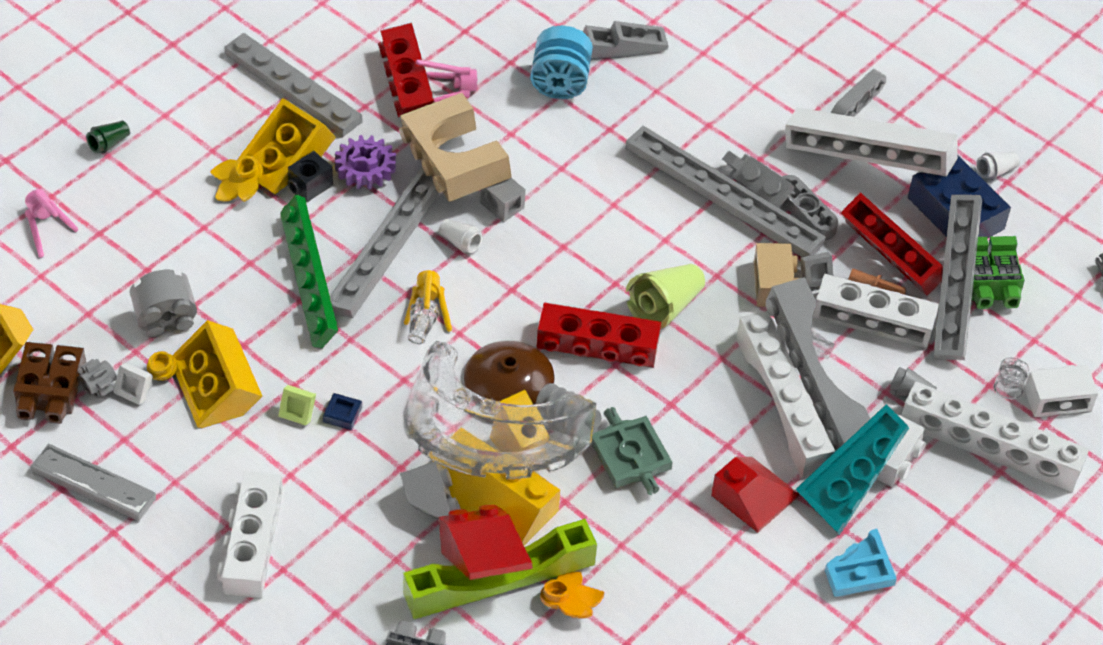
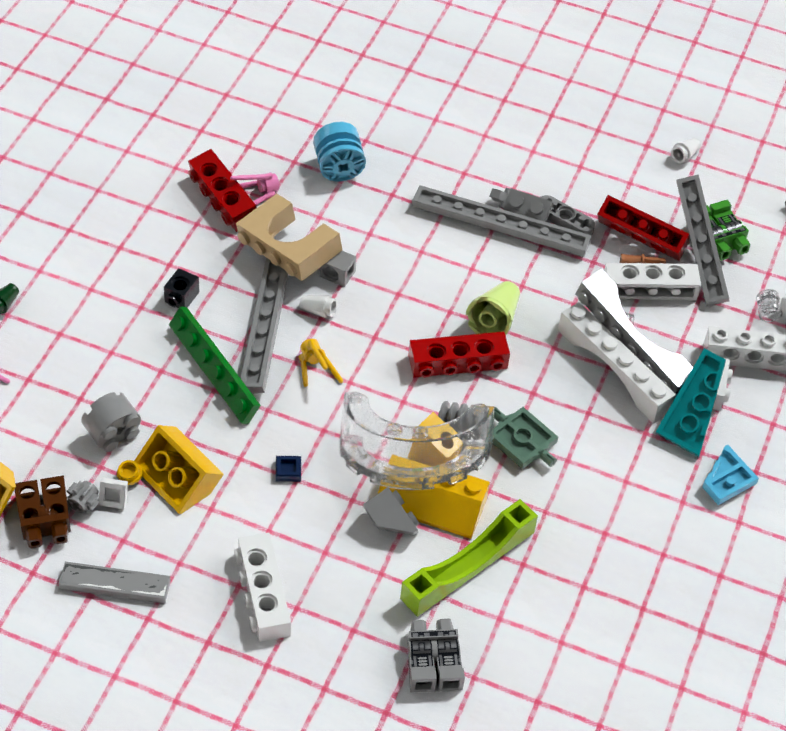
camera: 20 degrees left, 0 degrees up
(237, 179) = (123, 309): yellow plate -> none
(283, 141) = (148, 270): yellow slope -> none
(293, 84) = (133, 220): light grey plate -> none
(297, 405) = (253, 473): yellowish green tile -> none
(365, 162) = (219, 267): medium lavender gear -> none
(421, 320) = (319, 380): clear cone -> none
(482, 542) = (451, 540): red slope -> none
(492, 378) = (388, 400): reddish brown dish -> none
(571, 596) = (527, 562): light orange plate -> none
(626, 40) = (378, 122): light grey slope -> none
(752, 492) = (624, 444): red slope -> none
(772, 267) = (565, 272): tan brick -> none
(815, 266) = (594, 260): light grey tile -> none
(860, 94) = (565, 125): light grey beam -> none
(872, 141) = (595, 155): white brick -> none
(904, 381) = (697, 328): light grey cone -> none
(933, 197) = (658, 181): dark blue brick -> none

